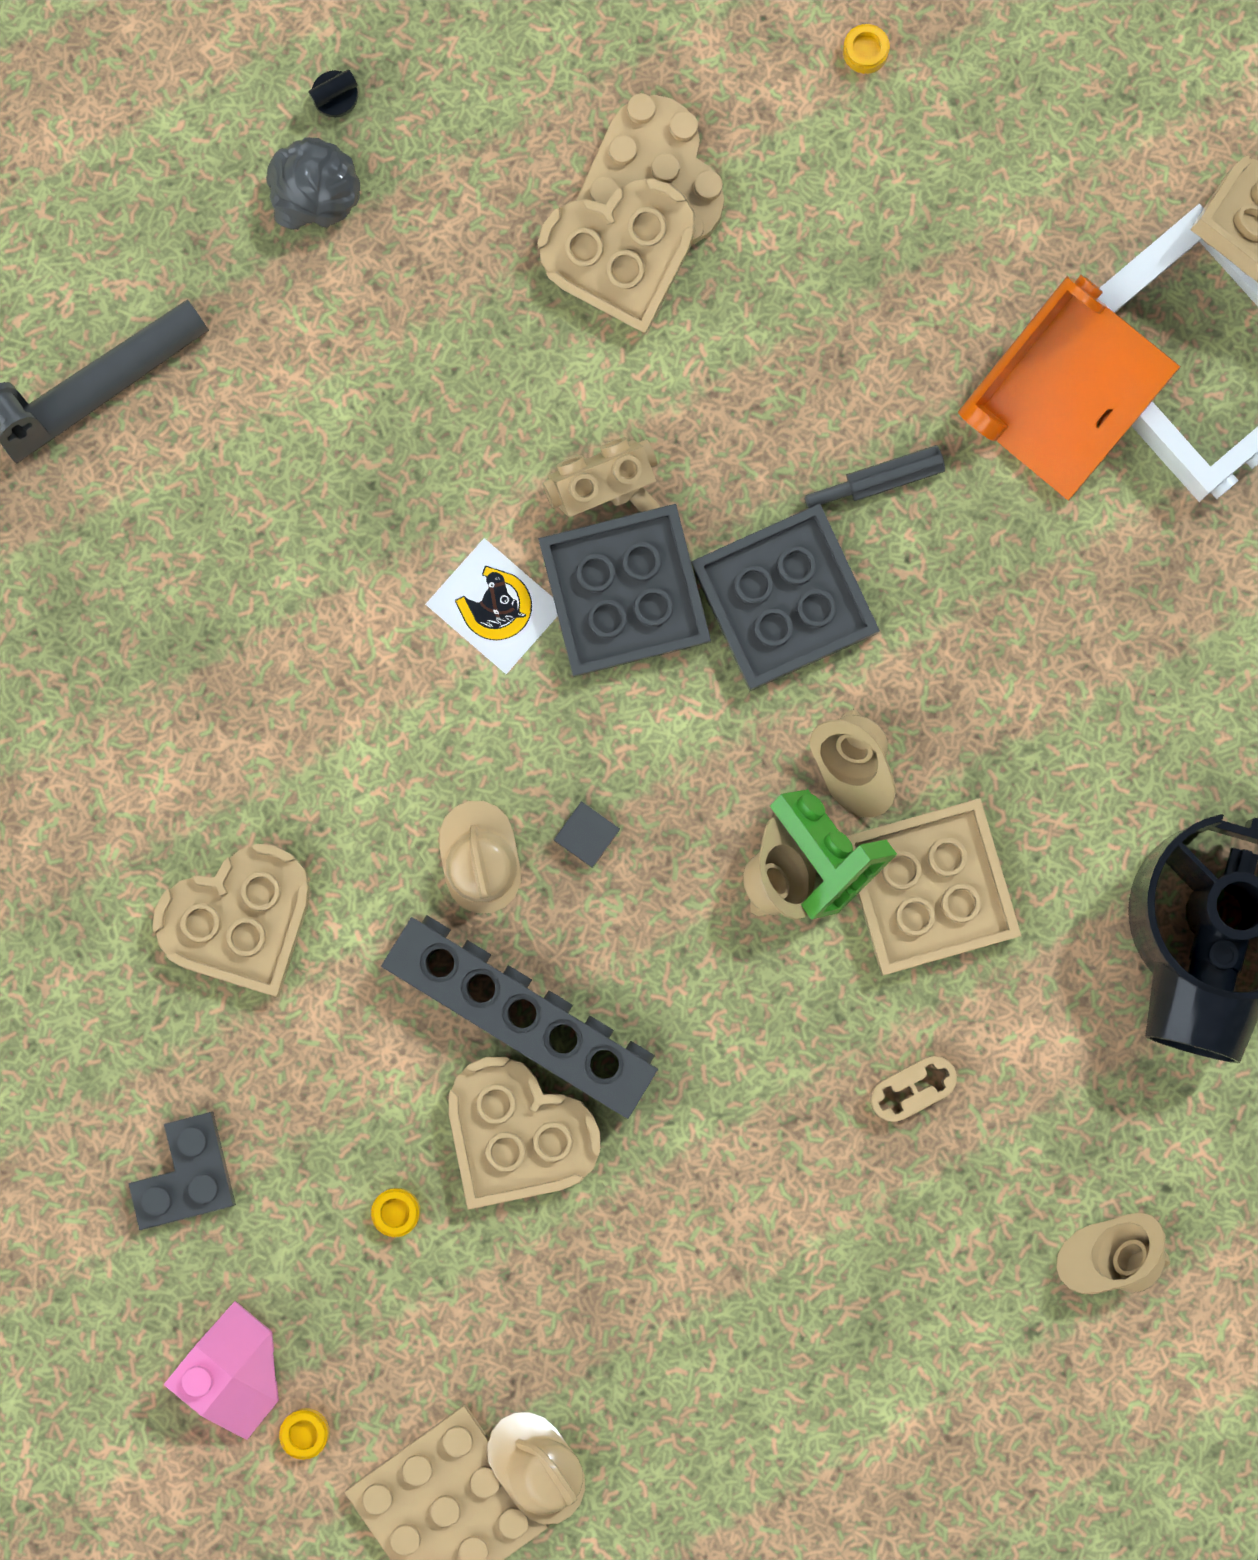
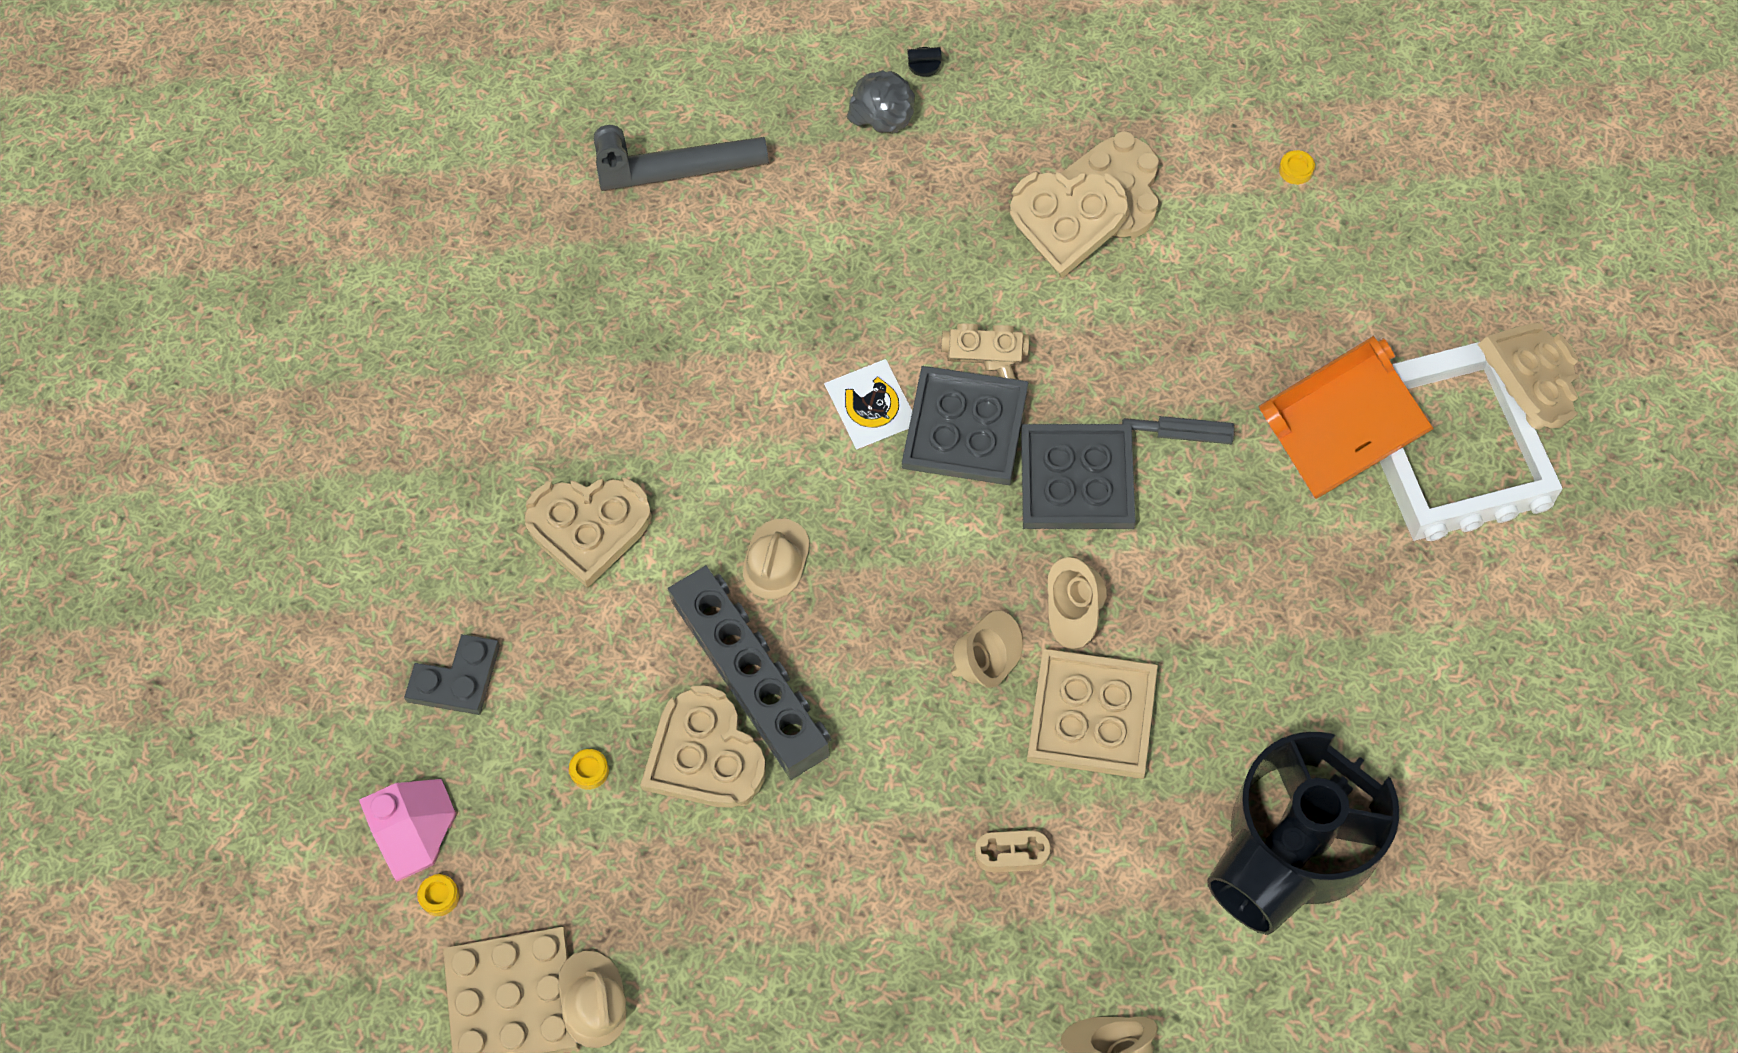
camera: 25 degrees right, 20 degrees down
(586, 834) = (859, 573): dark grey tile -> none
(829, 852) = (1033, 660): bright green bracket -> none

